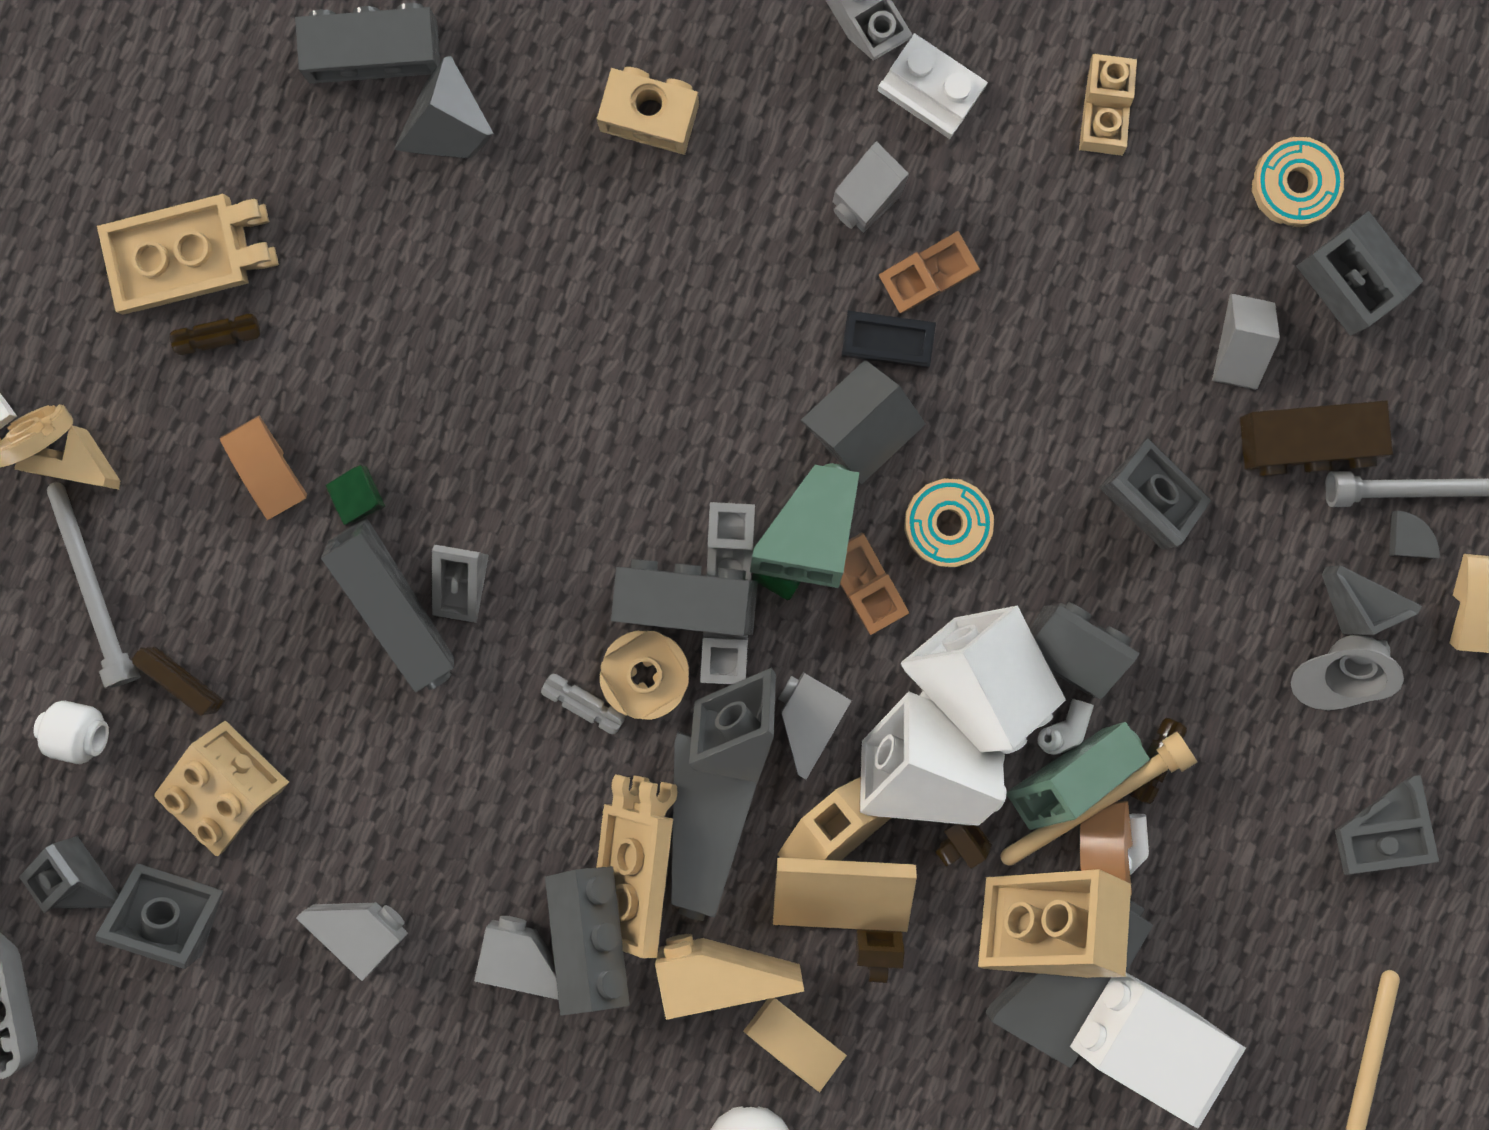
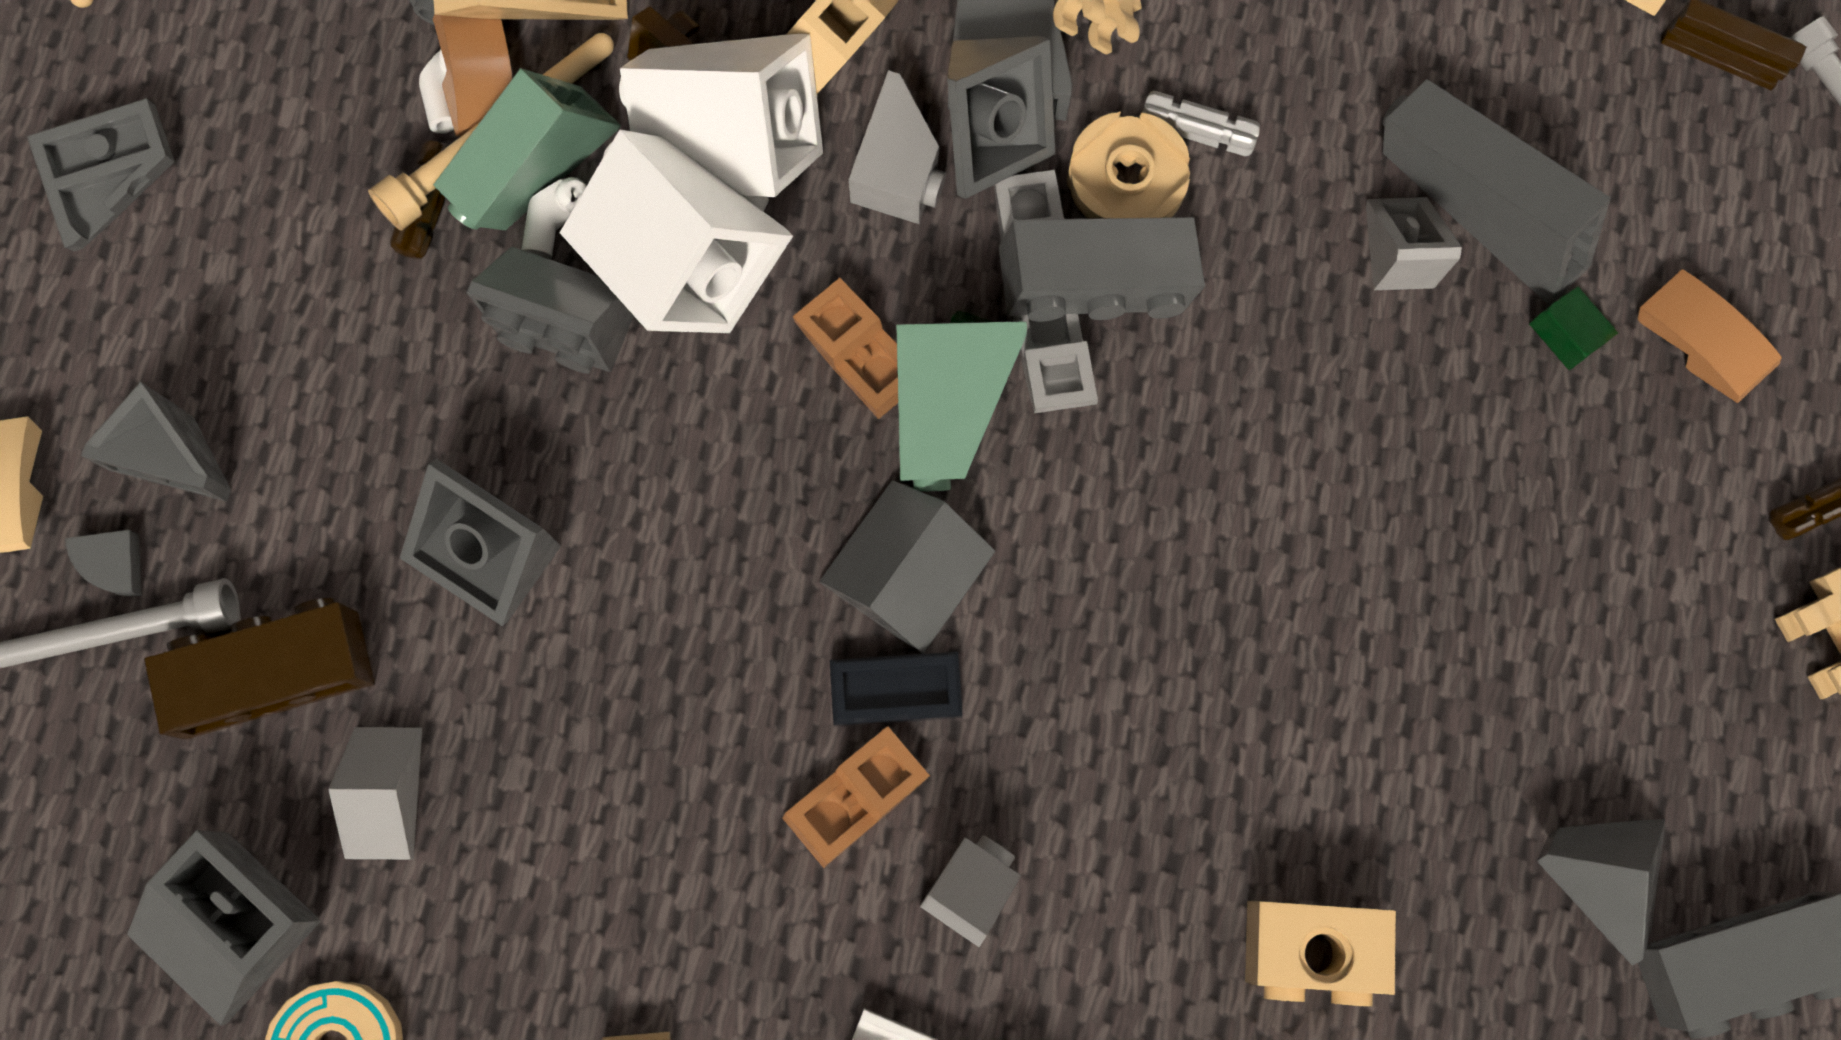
camera: 165 degrees right, 10 degrees down
(975, 518) = (754, 416): tan tile -> none
(1350, 674) = (176, 353): light grey piece -> none

